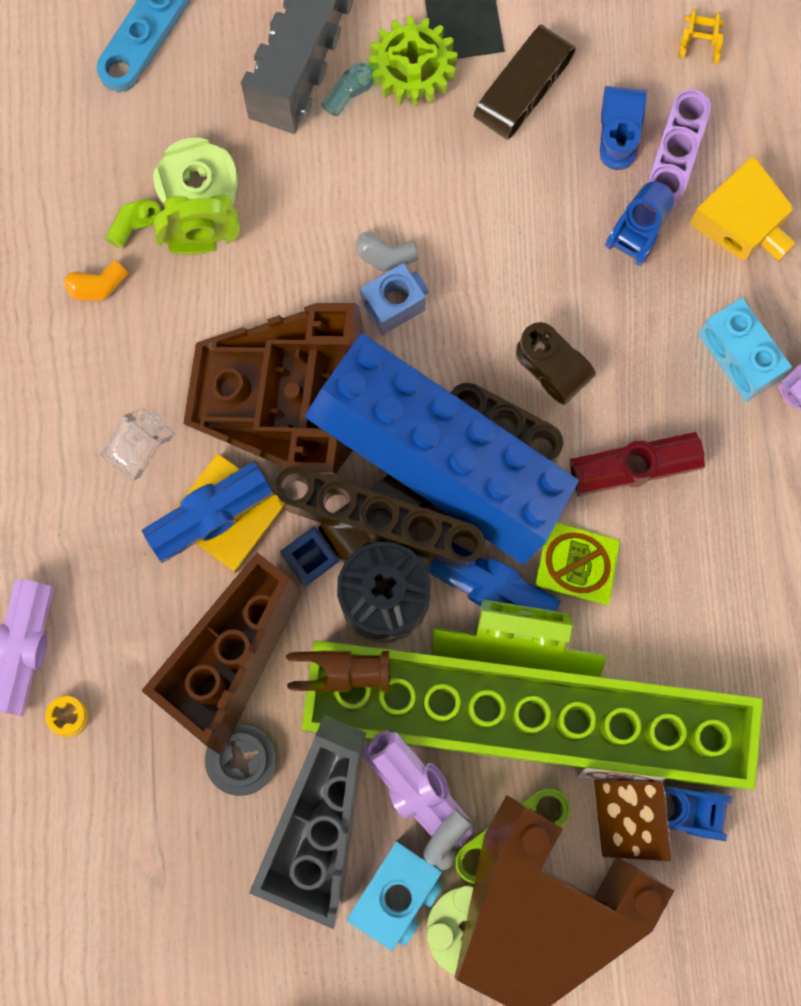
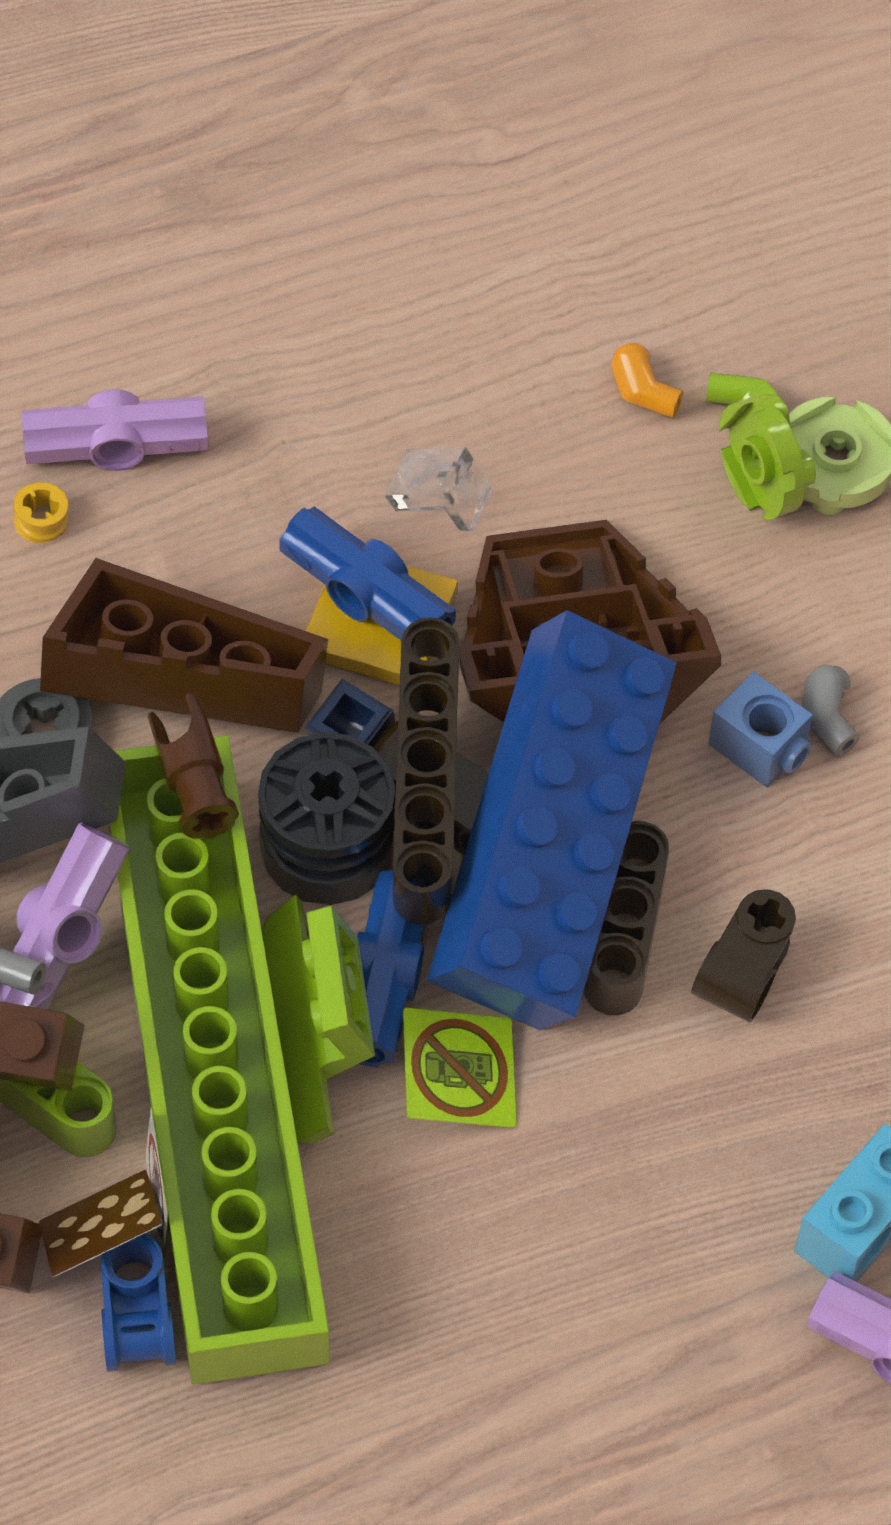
camera: 70 degrees right, 20 degrees down
(663, 459) = (653, 1137): dark red piece -> none

